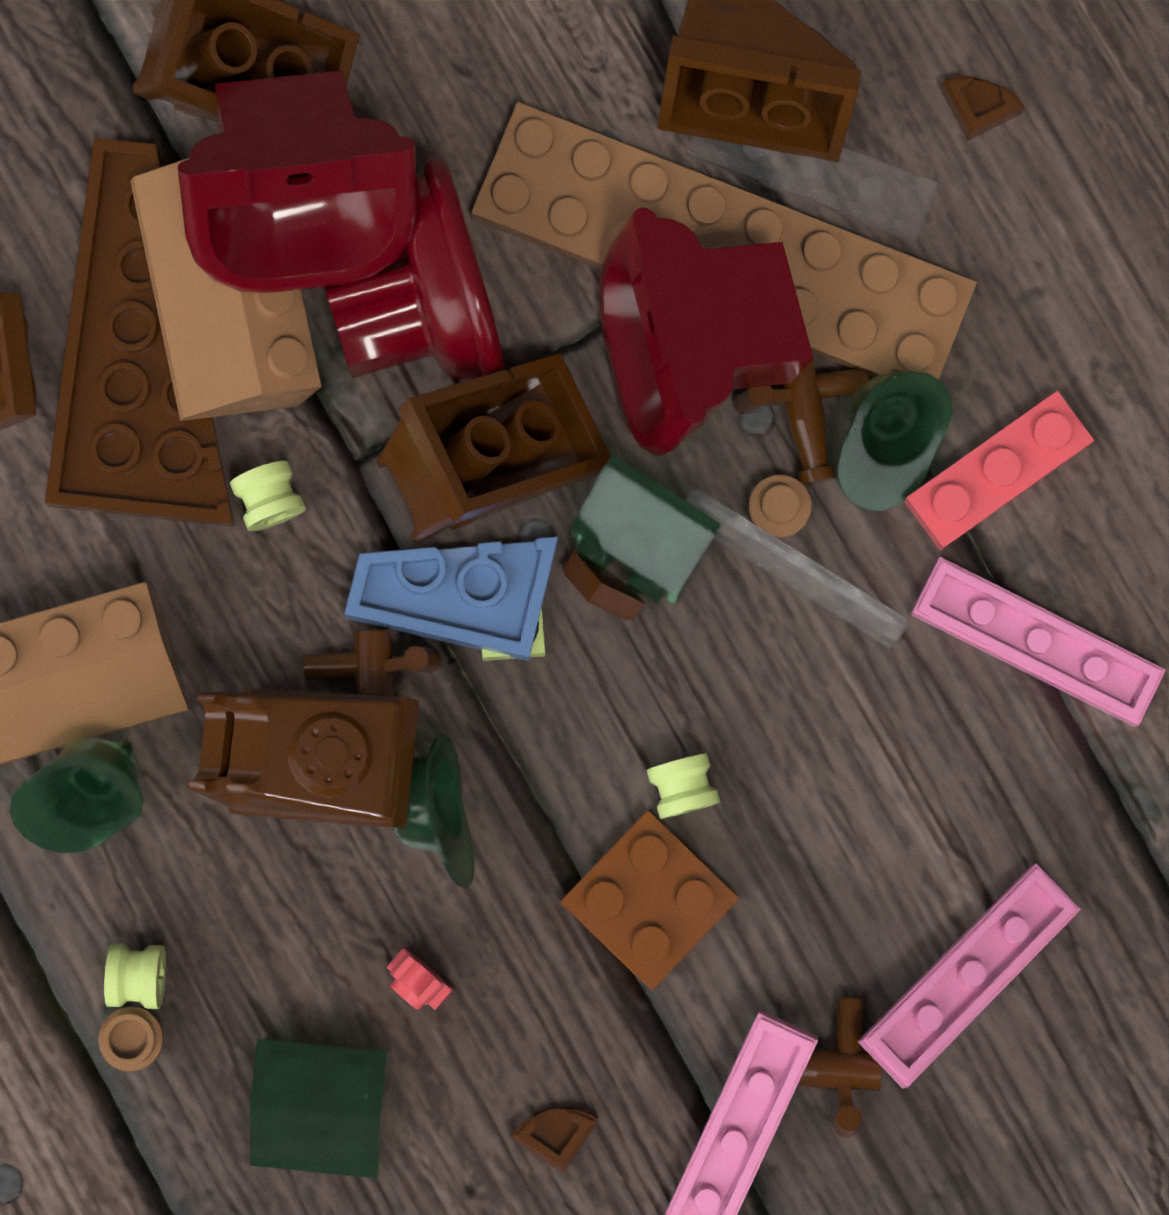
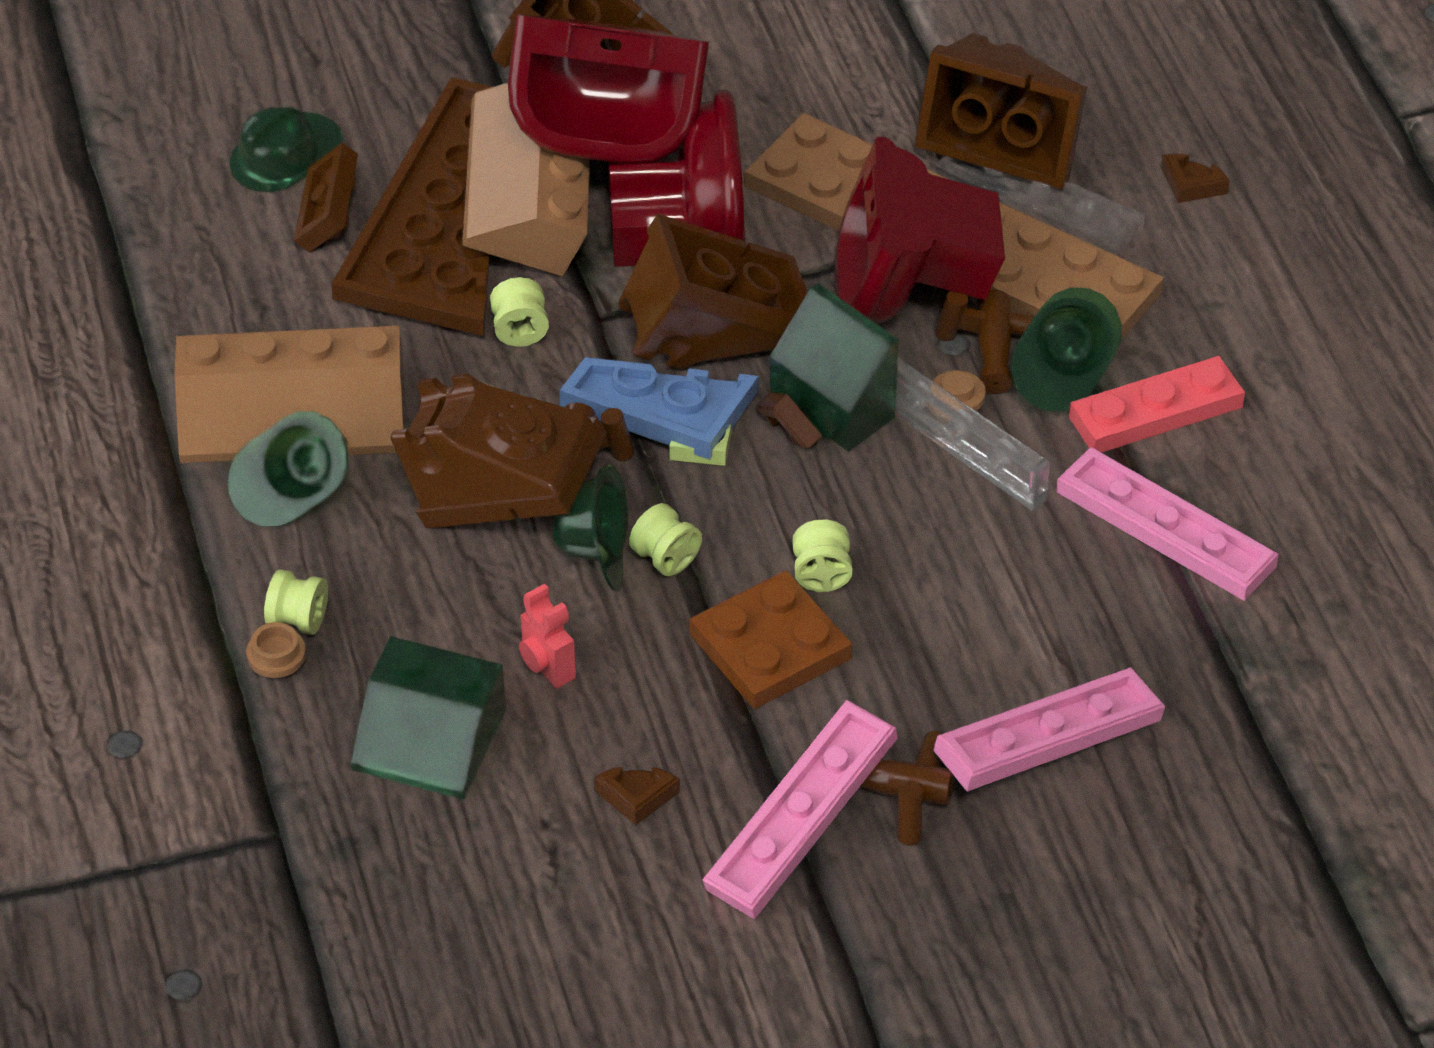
camera: 15 degrees right, 35 degrees down
(510, 800) = (665, 539): none -> yellowish green wheel

